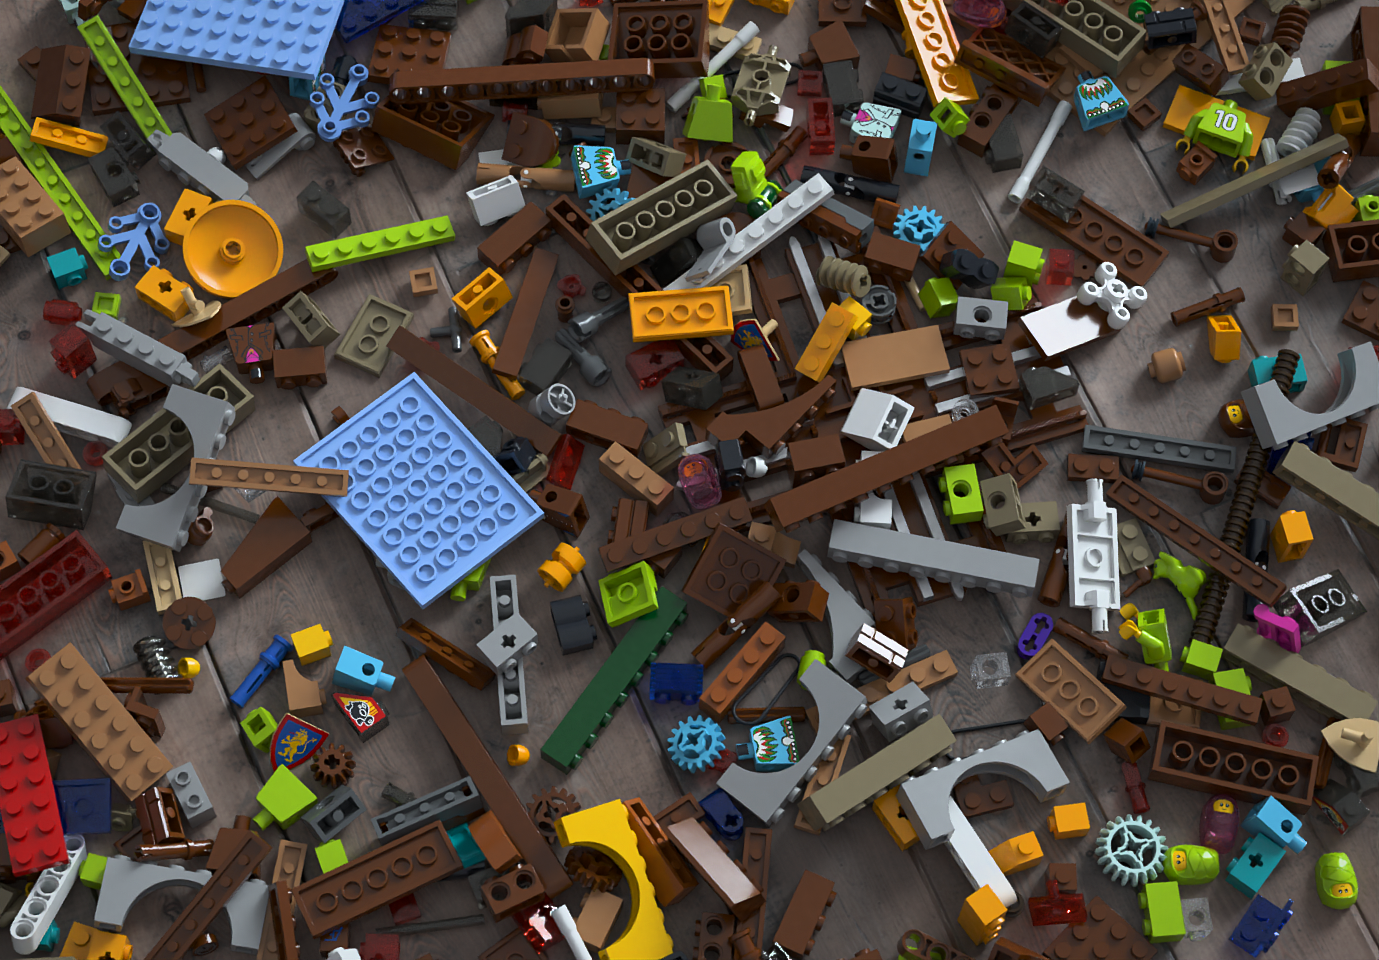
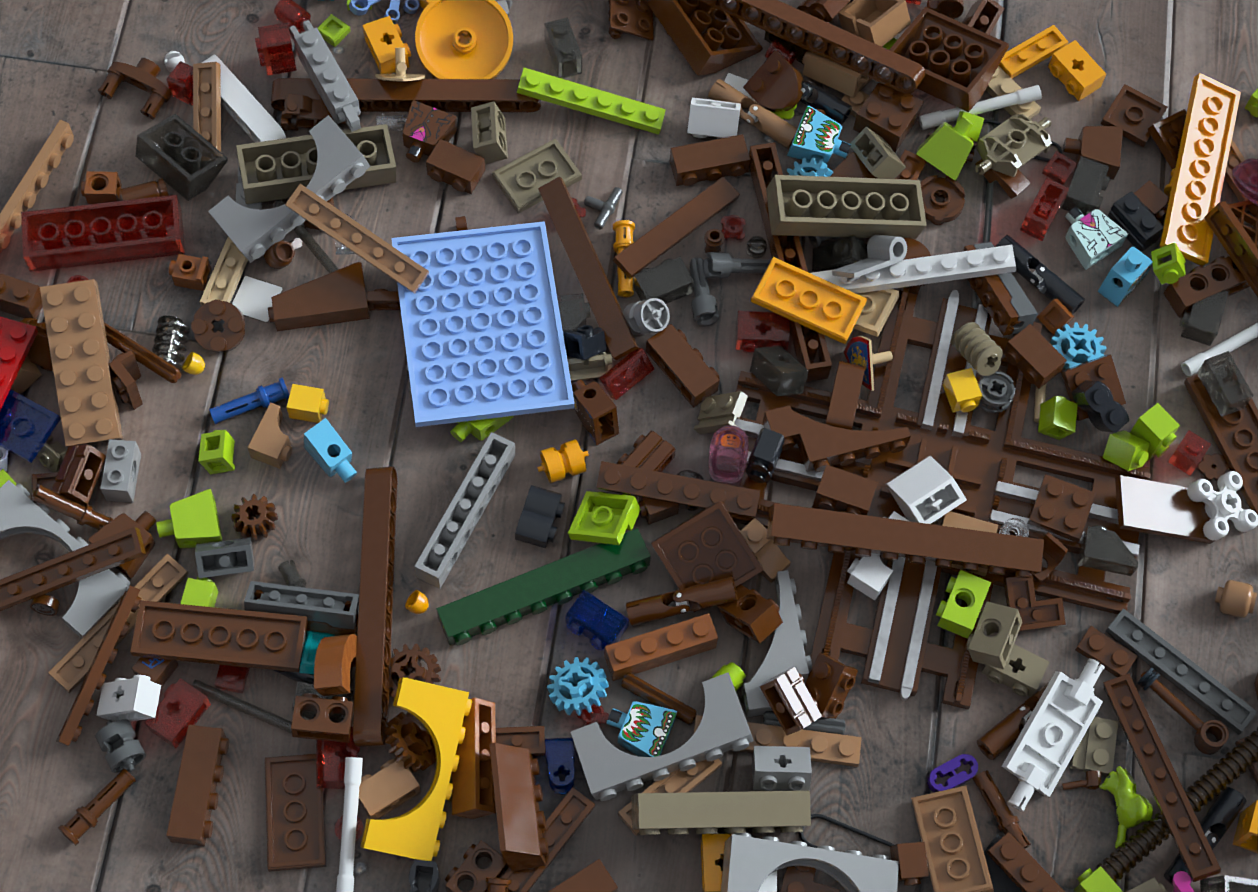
camera: 30 degrees right, 0 degrees up
(91, 448) = (237, 139): clear red plate -> none
(294, 742) = (235, 477): shield -> none
(362, 713) = (309, 488): slope -> none
(423, 282) = (607, 153): medium nougat plate -> none
(445, 654) = (413, 477): reddish brown plate -> none
(482, 297) = (647, 193): light orange brick -> none
(512, 631) = (474, 488): light grey brick -> none
(636, 478) = (679, 422): medium nougat brick -> none
(752, 185) = (947, 224): lime piece -> none
(756, 467) = (790, 472): white hinge -> none
(757, 681) = (669, 664): black piece -> none
(785, 149) = (1001, 212): reddish brown pin -> none
(826, 342) = (923, 397): light orange brick -> none
(872, 157) = (1075, 261): reddish brown torso -> none
(894, 357) = (981, 447): medium nougat tile -> none
(933, 558) = (899, 647): light grey brick -> none
(991, 311) = (1076, 443): light grey brick -> none
(998, 662) = (900, 774): clear brick -> none
(1151, 634) = (1061, 838): lime torso -> none

